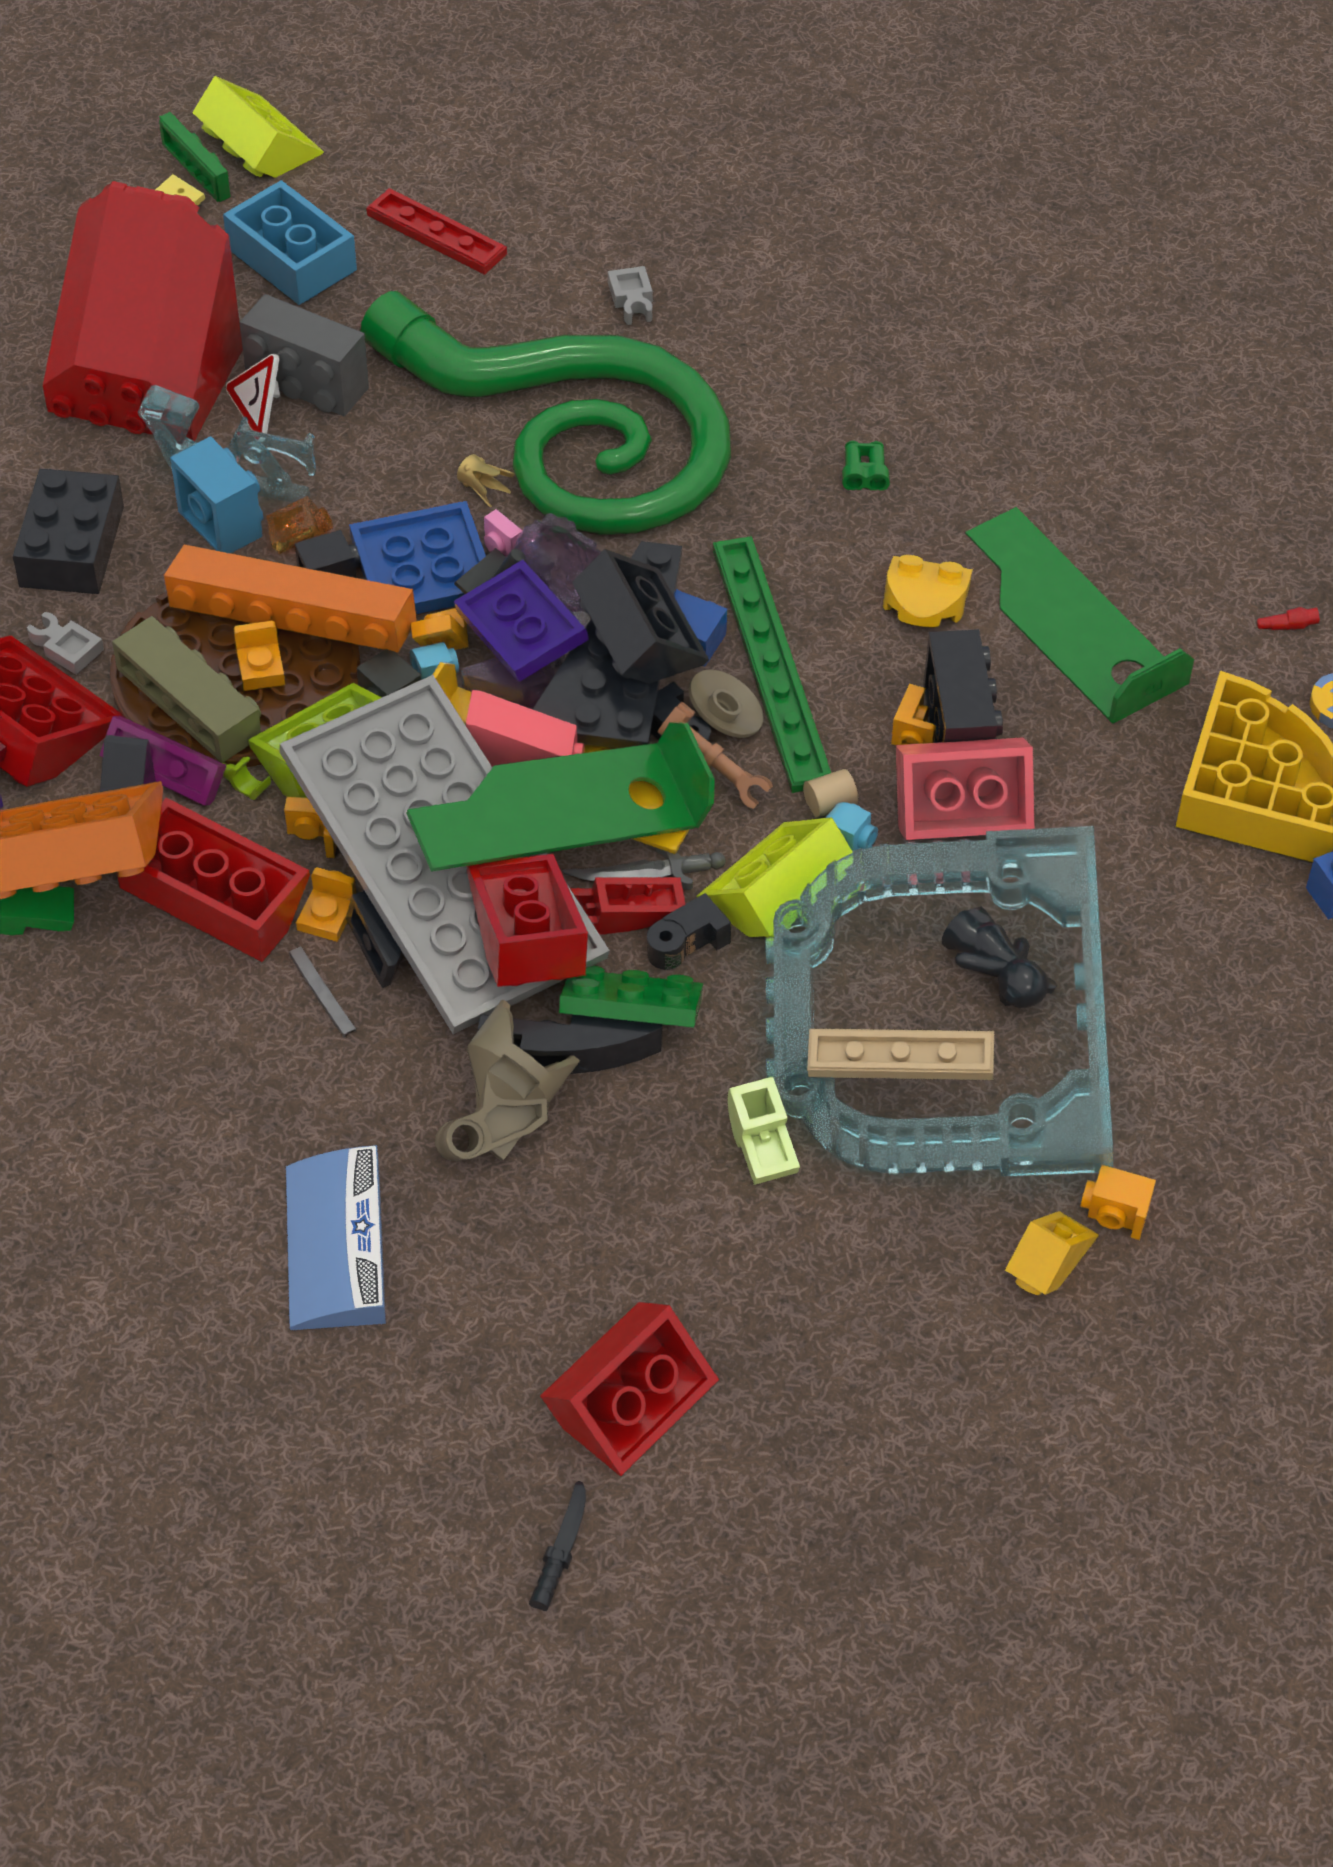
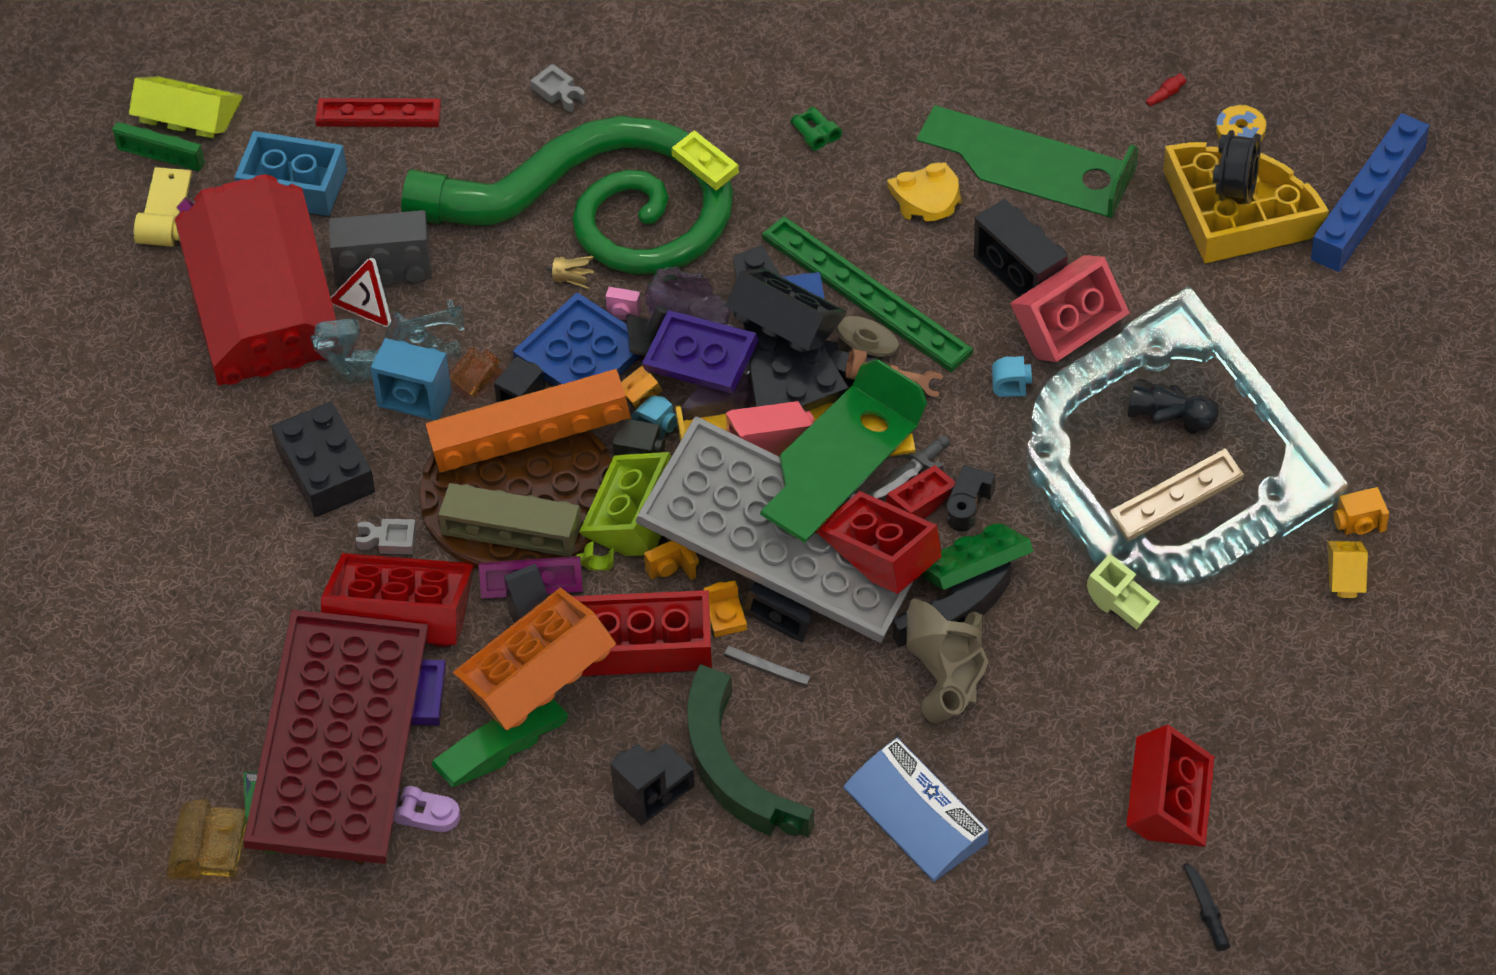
camera: 30 degrees left, 0 degrees up
(81, 1042) = (649, 780): none -> black brick
(180, 1032) = (720, 774): none -> dark green arch
(259, 655) = (535, 472): light orange bracket -> none
(701, 431) = (705, 160): none -> neon yellow plate
(776, 873) = (994, 427): neon yellow slope -> none
(828, 790) = (980, 358): tan piece -> none
(910, 721) = (994, 289): light orange bracket -> none
(1270, 729) = (1238, 166): none -> black wheel

